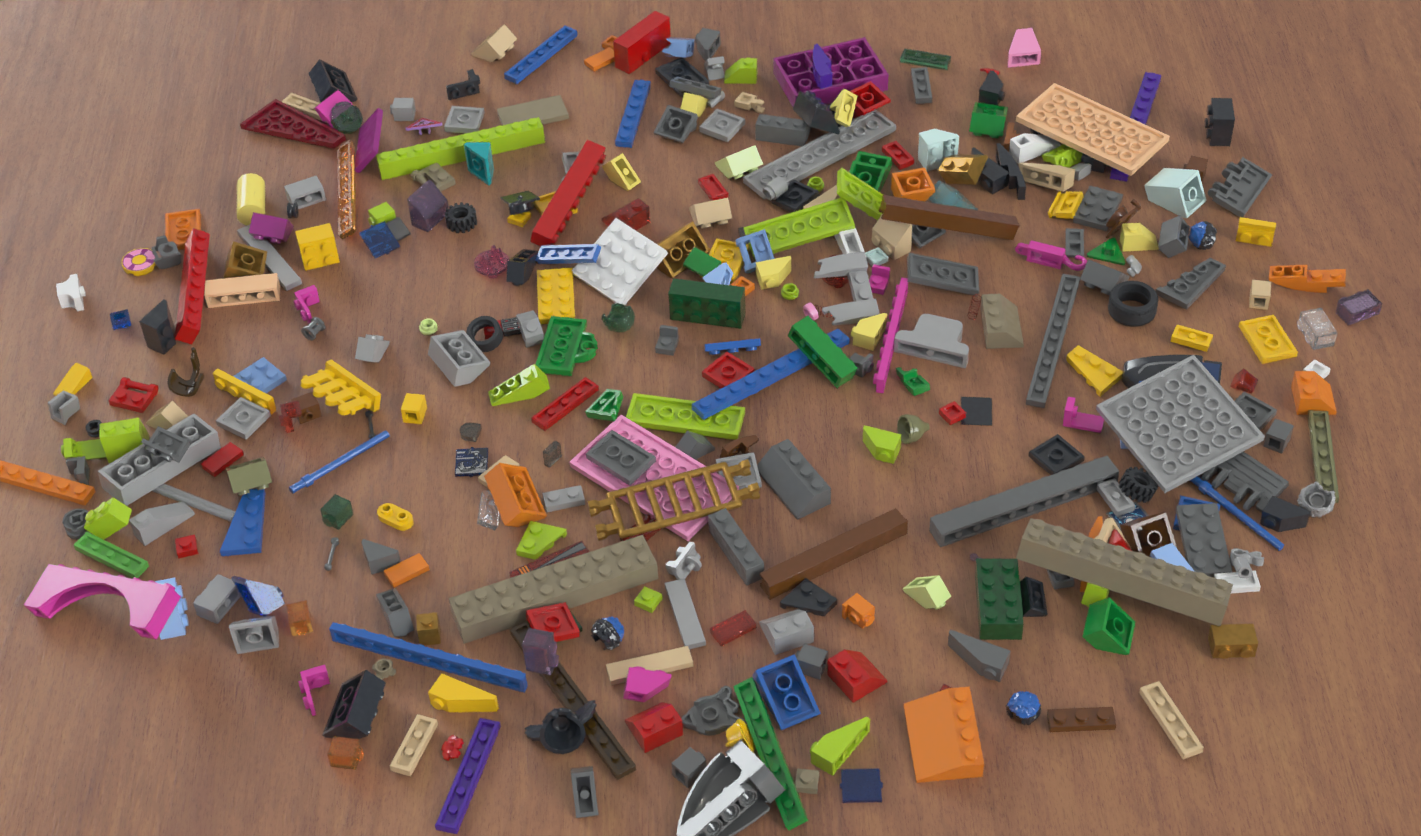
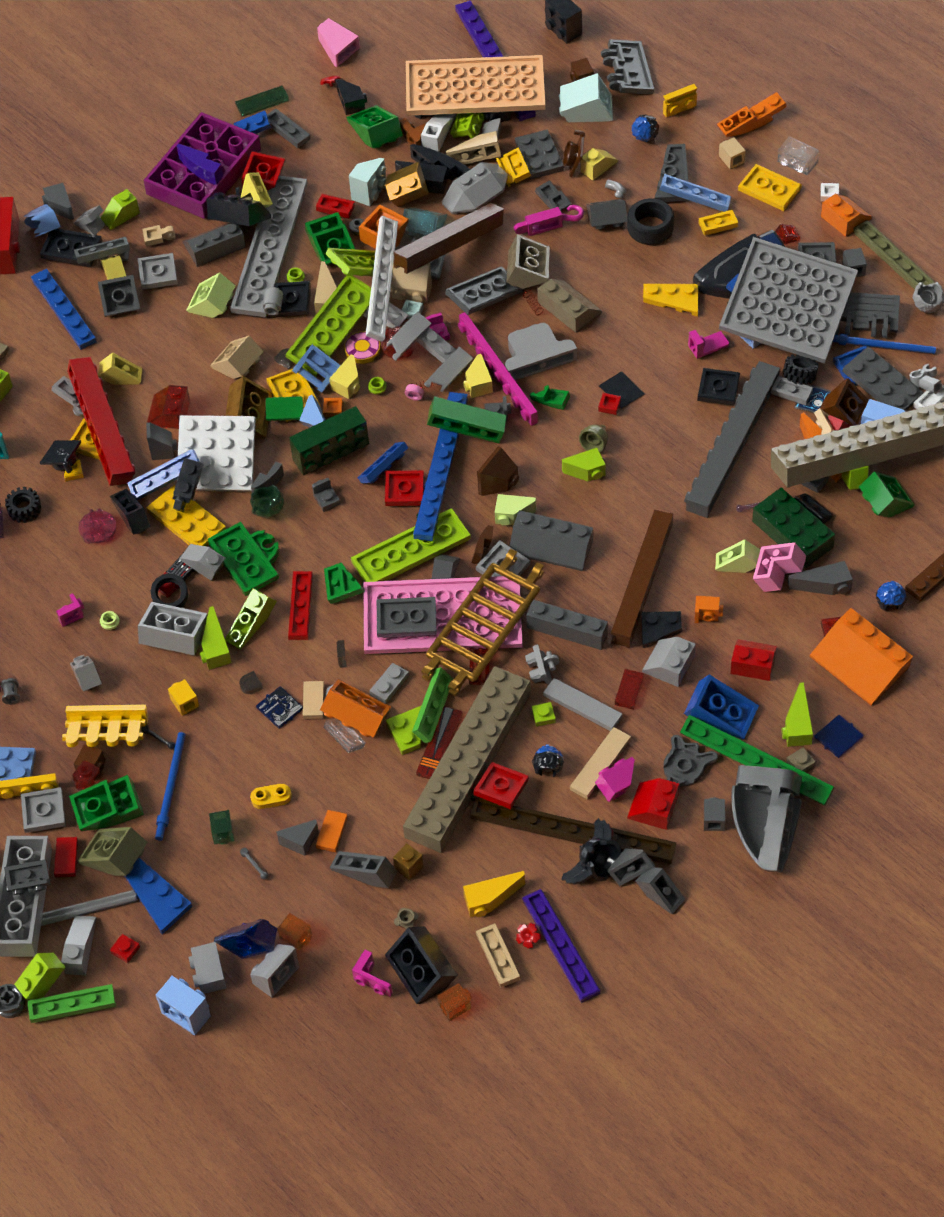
camera: 40 degrees left, 10 degrees up
(148, 601) = (70, 1057): arch -> none
(285, 443) = (106, 804): none -> green slope
(409, 304) = (70, 612): none -> dark pink bracket
(429, 657) = (425, 885): blue plate -> none
(476, 386) = (213, 643): none -> lime slope
(540, 651) = (525, 811): clear purple brick -> none
(569, 533) = (432, 705): none -> bright green plate
(571, 267) = (186, 483): none -> black hinge
(577, 754) = (630, 865): none -> dark grey slope
(589, 228) = (160, 442): none -> dark grey slope
(641, 305) = (272, 478): none -> dark grey slope
(712, 187) = (211, 334): red tile -> none
(737, 732) = (727, 765): yellow piece -> none
(788, 430) = (509, 506): none -> yellowish green slope
(803, 403) = (497, 473): none -> reddish brown slope
(806, 259) = (362, 347): none -> tile
(812, 660) = (715, 667): dark grey brick -> none
(863, 218) = (381, 279): none -> white tile
(899, 68) = (255, 123): none -> blue plate
(948, 614) = (775, 562): none -> bright pink brick
(996, 272) = (527, 263): none -> dark tan slope
(1018, 199) = (475, 188): none -> light grey wedge
(1053, 341) = (621, 292): dark grey plate -> none
(1108, 252) = (584, 188): green piece -> none
(1174, 236) = (625, 143): dark grey brick -> none
(1193, 304) = (695, 193): none -> medium blue tile
(1283, 516) = (915, 325): black slope -> none
(1358, 307) = (809, 118): brick -> none

